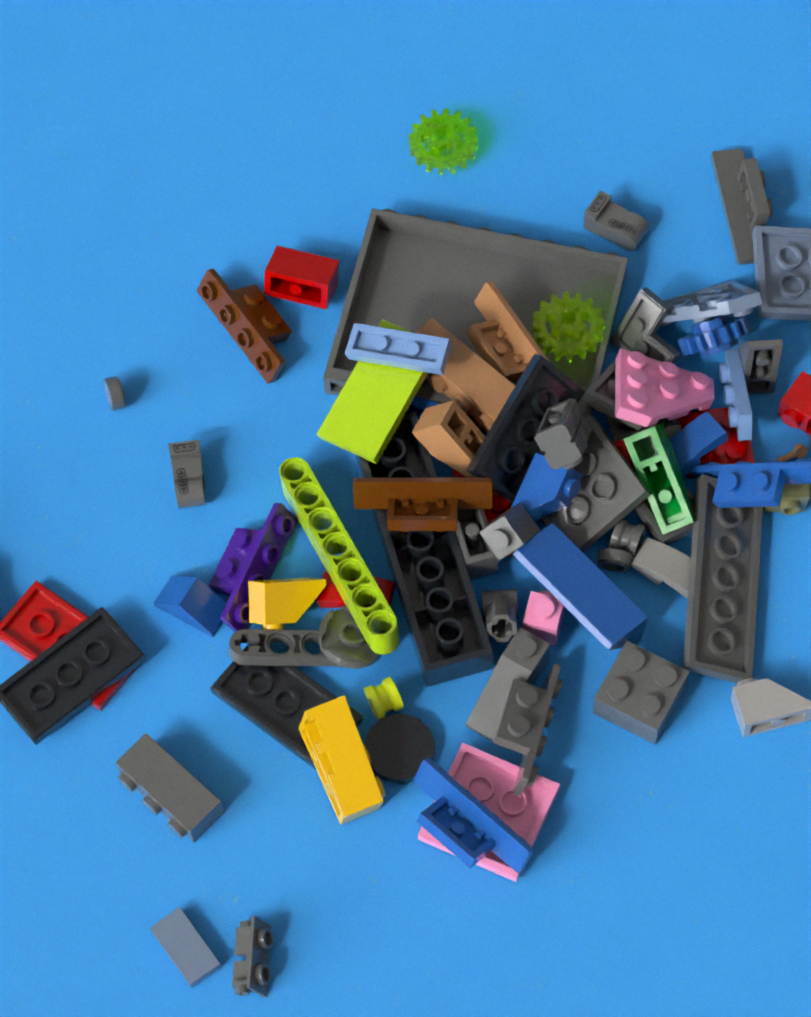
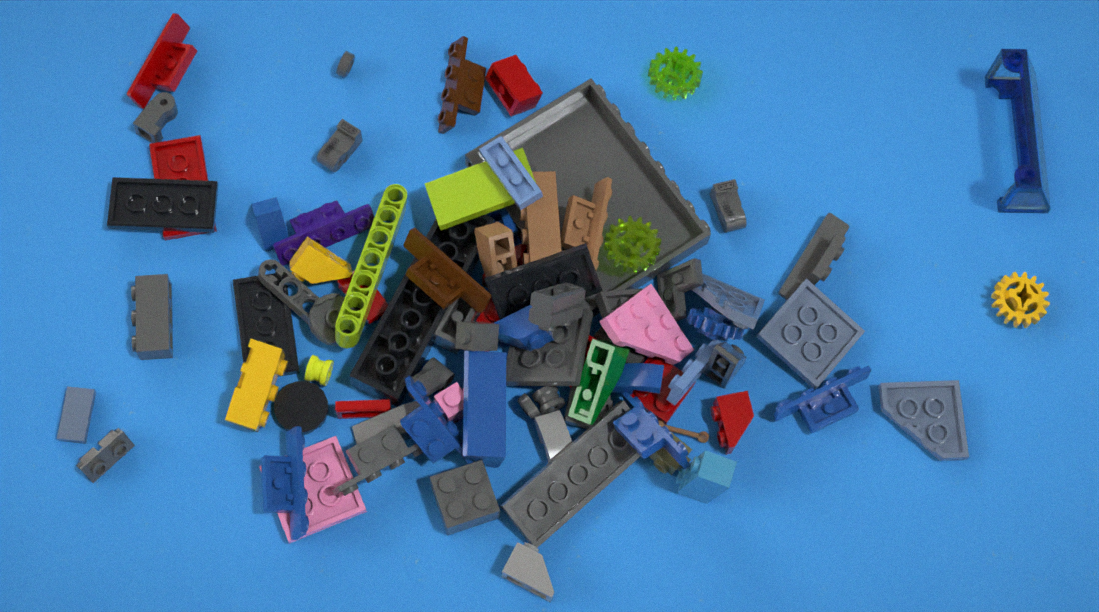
camera: 30 degrees right, 5 degrees up
(461, 697) = (361, 408): none -> red tile
(553, 653) = (429, 427): none -> blue bracket

